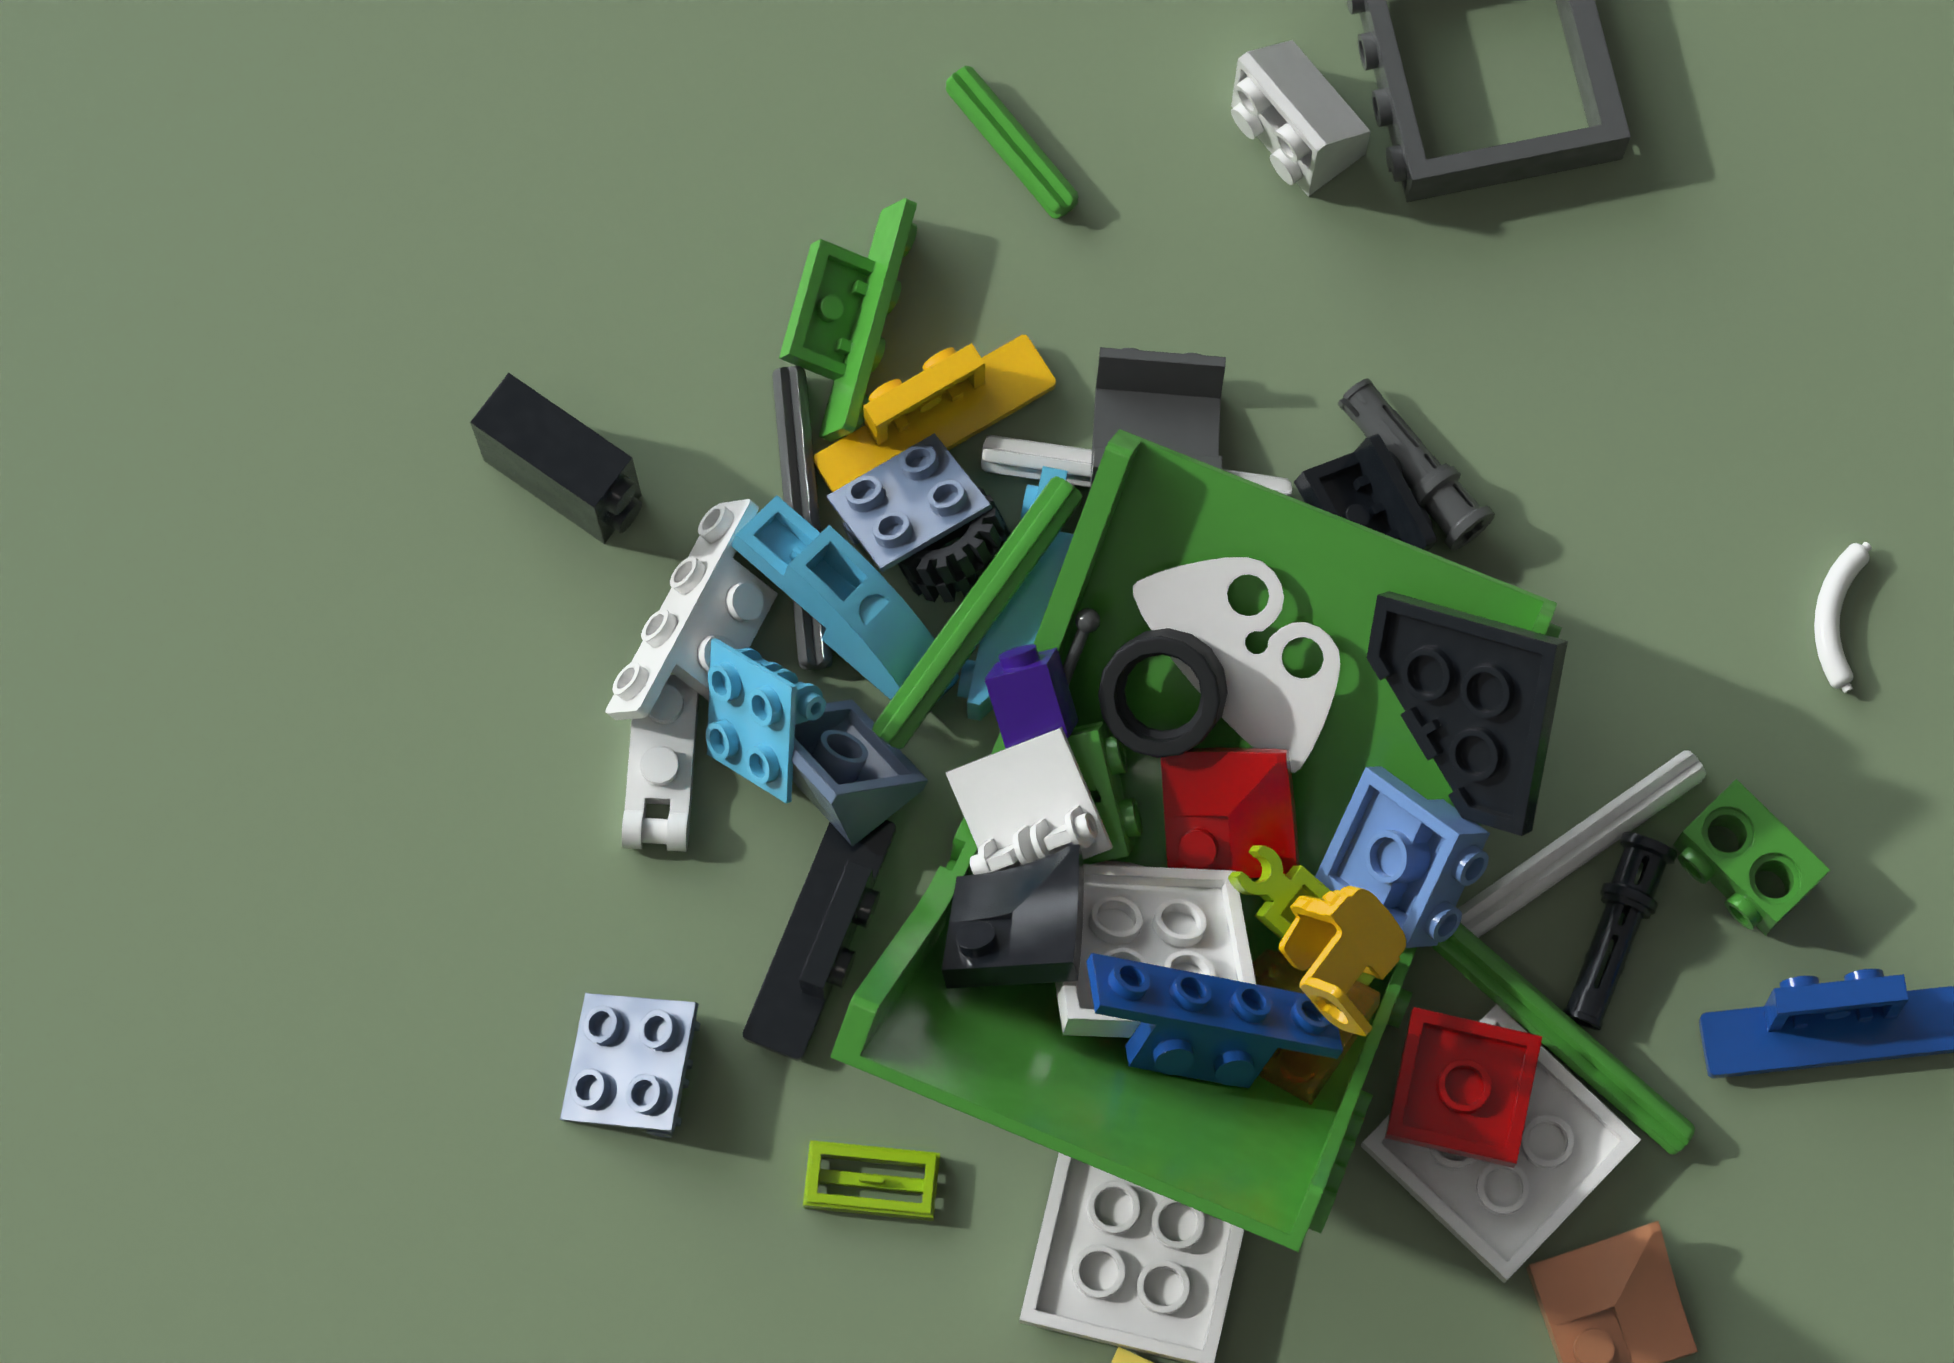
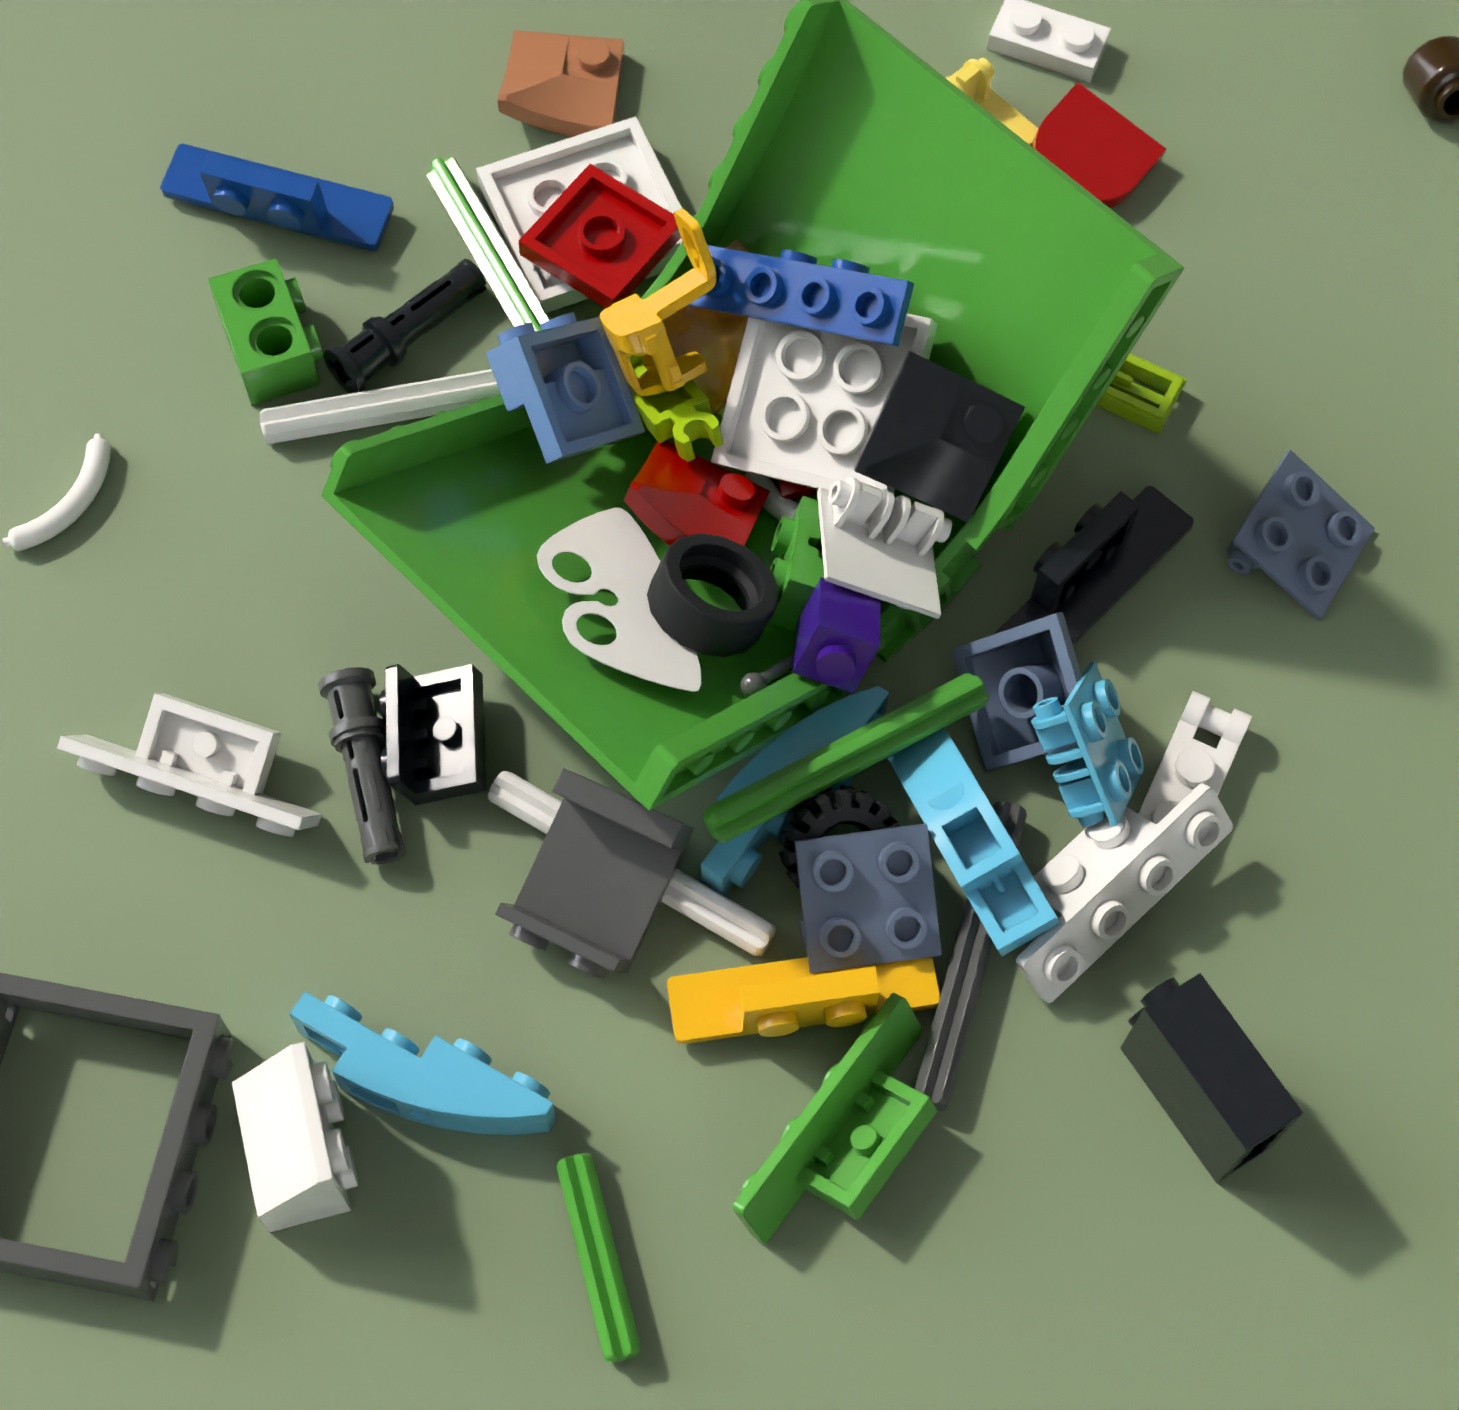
camera: 160 degrees left, 10 degrees down
(1200, 209) = (443, 1088): none -> medium azure slope
(1473, 700) = (444, 438): black plate -> none
(1559, 400) = (203, 755): none -> white bracket

